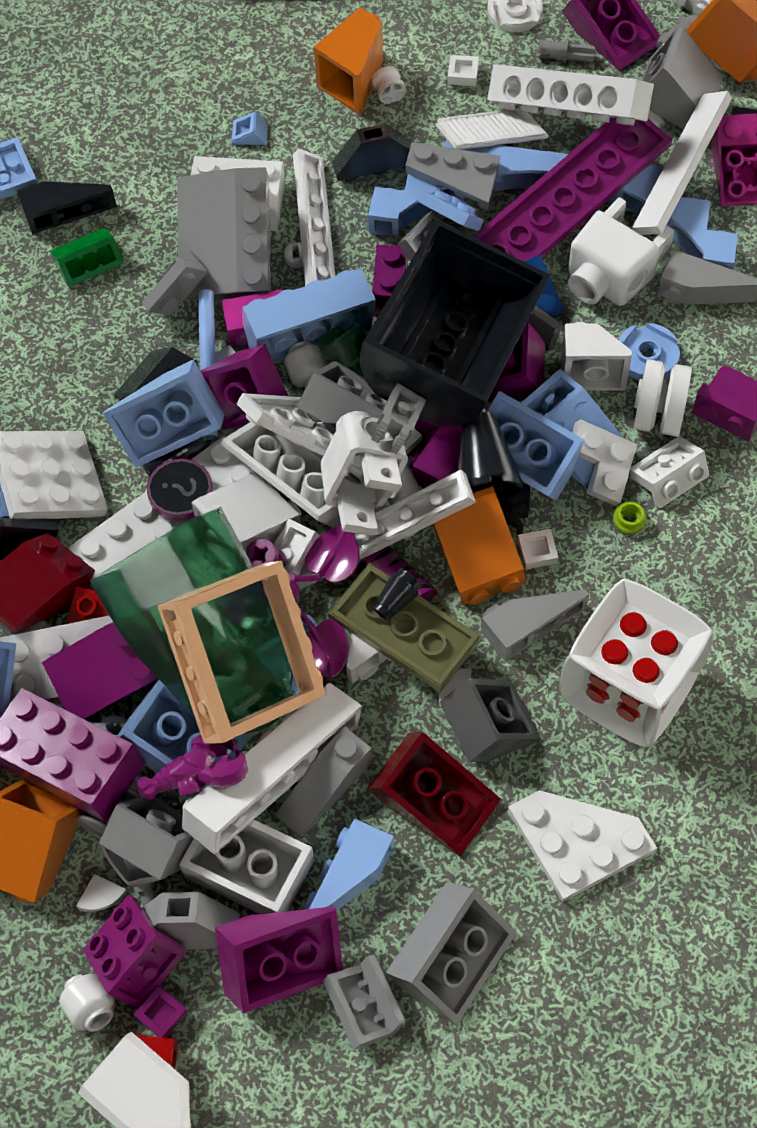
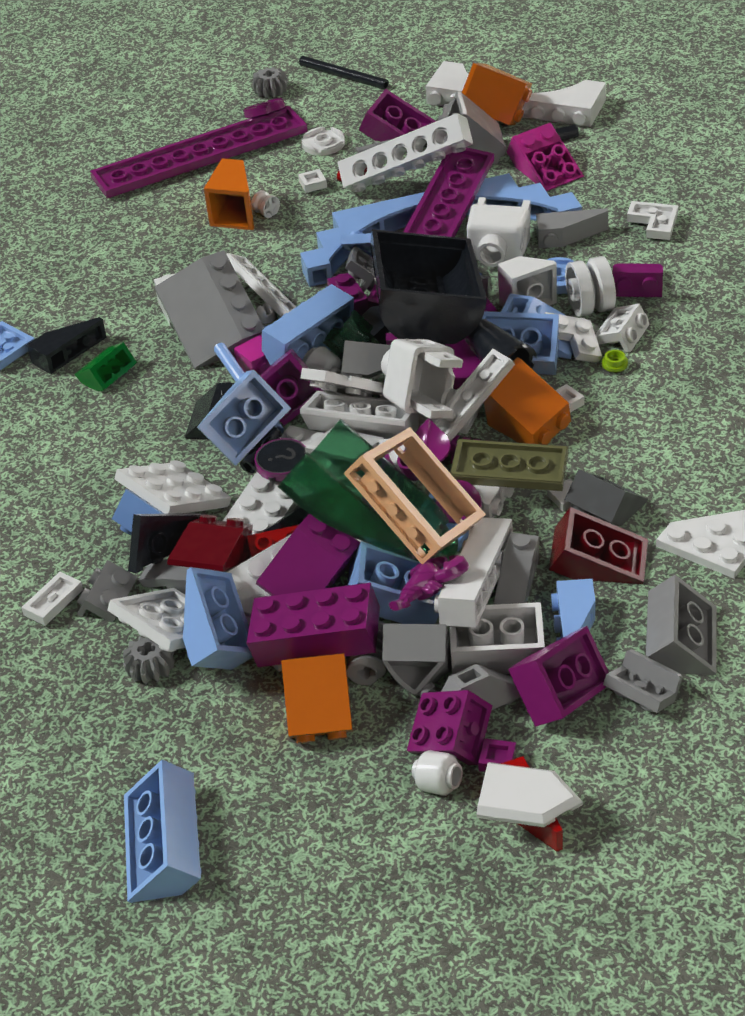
camera: 25 degrees left, 20 degrees down
(100, 895) = (396, 712): white tile -> none
(175, 285) = (192, 352): light grey bracket -> none
(250, 130) = (176, 261): light blue slope -> none
(372, 152) = (283, 239): black slope -> none
(397, 593) = (494, 439): black cone -> none
(399, 416) = (431, 331): light grey hinge -> none
(462, 171) = (349, 220): light grey wing -> none
(490, 129) = (358, 200): white window -> none
(528, 619) = (591, 435): light grey slope -> none
(635, 662) = (687, 417): white piece -> none
(682, 163) = (509, 164): white tile -> none

